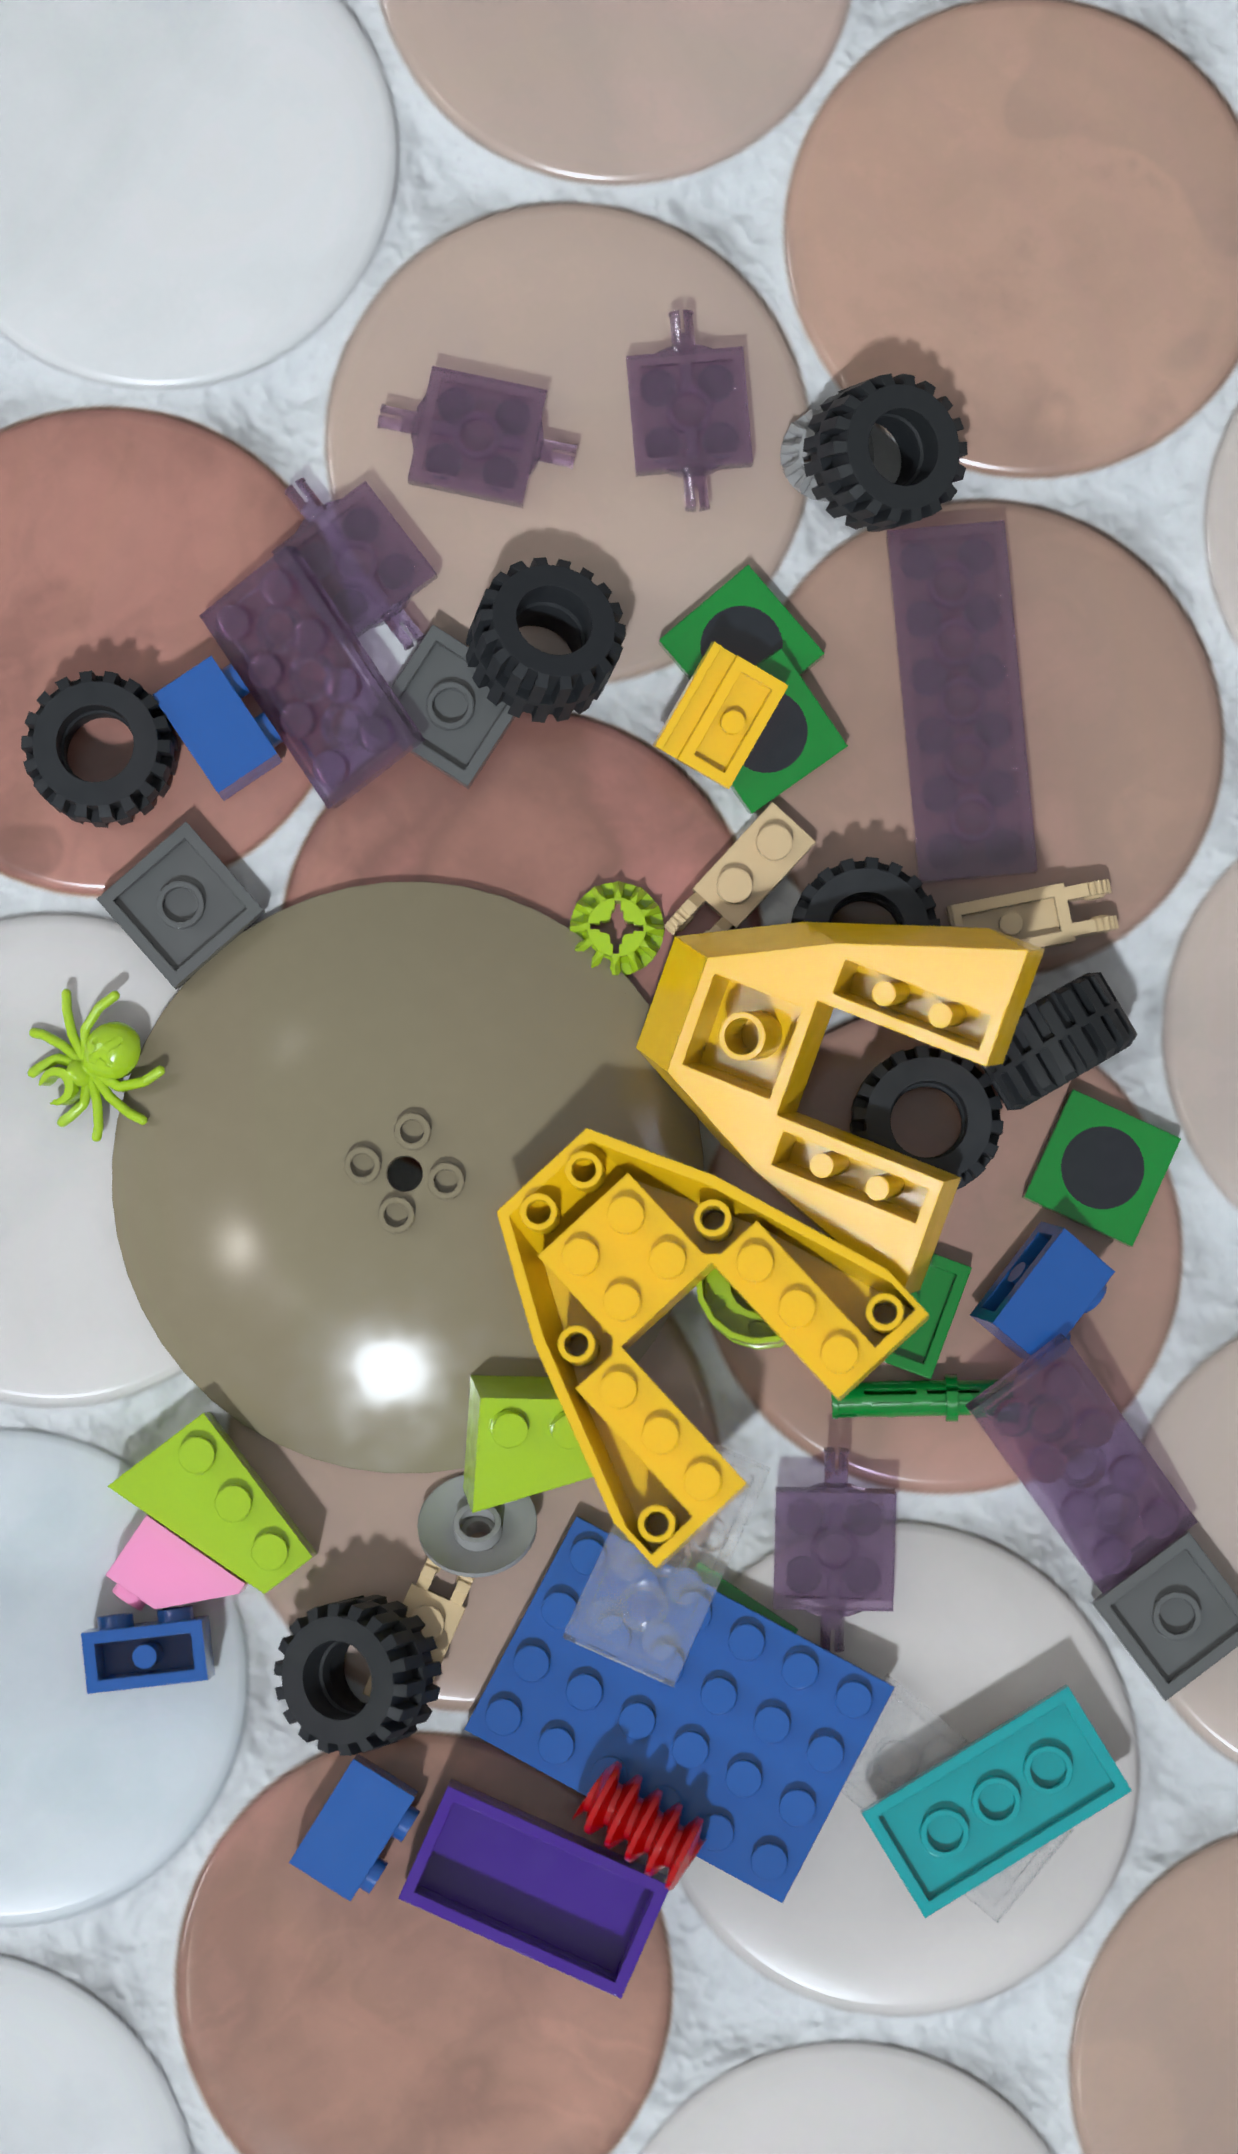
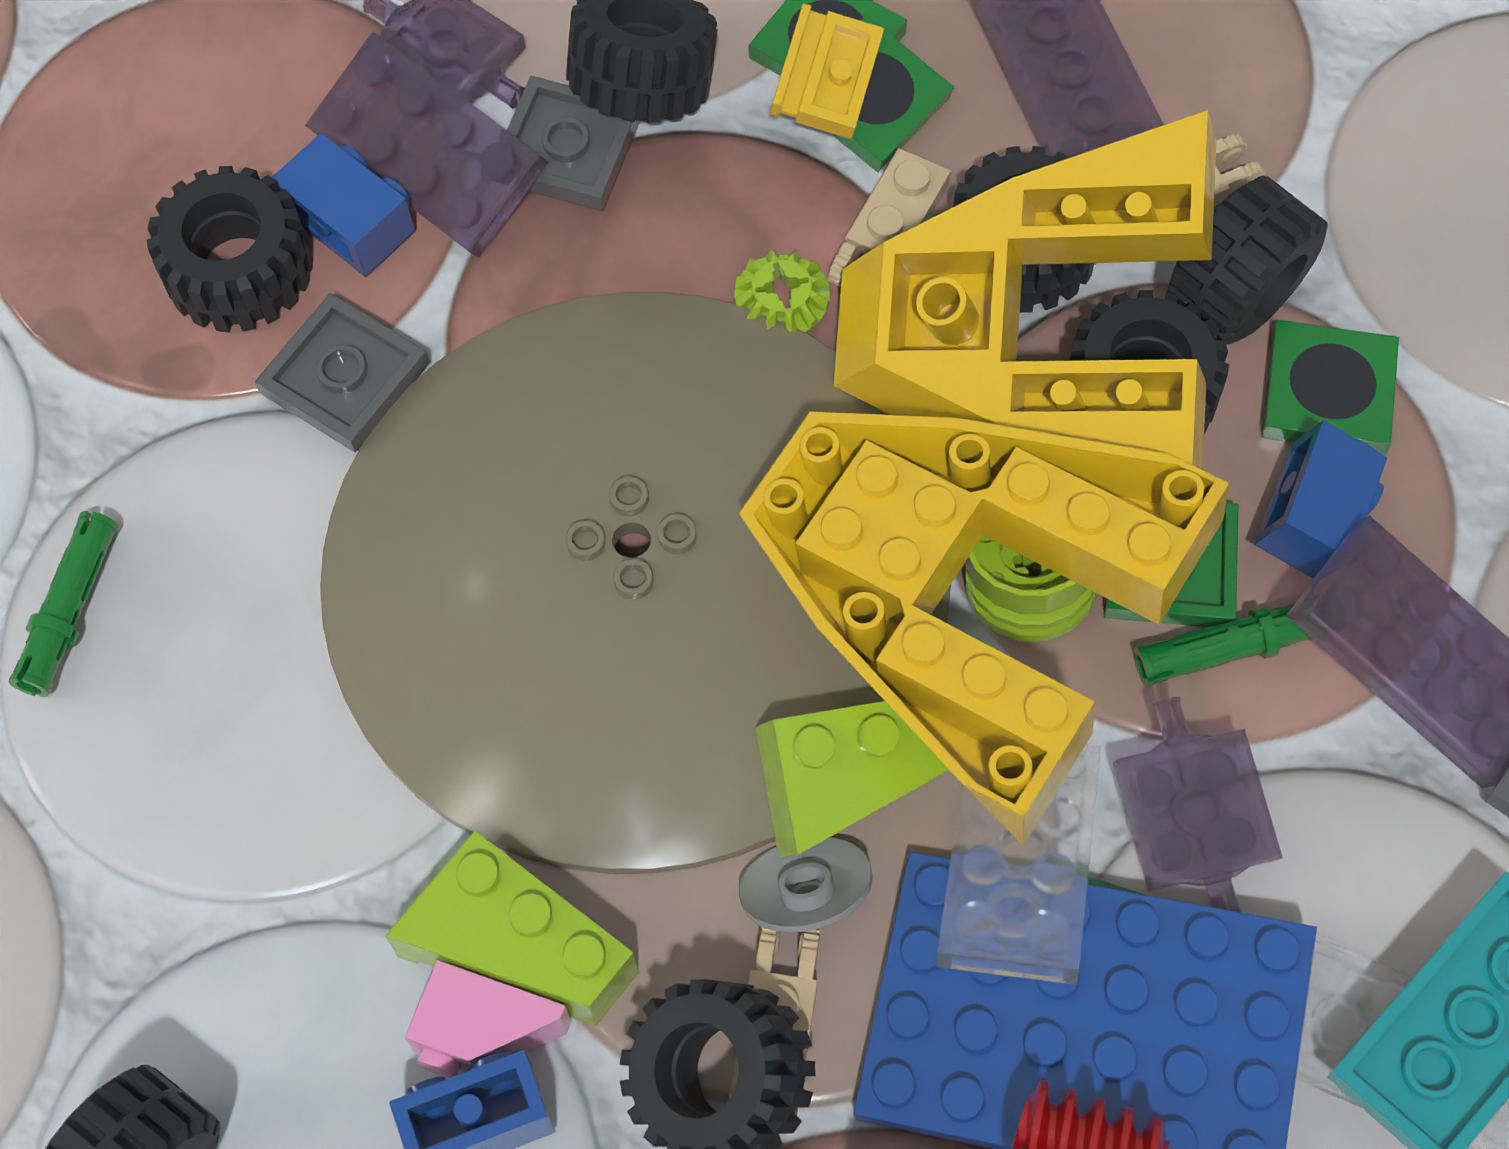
camera: 15 degrees left, 20 degrees down
(93, 1064) = (289, 531): lime animal -> none

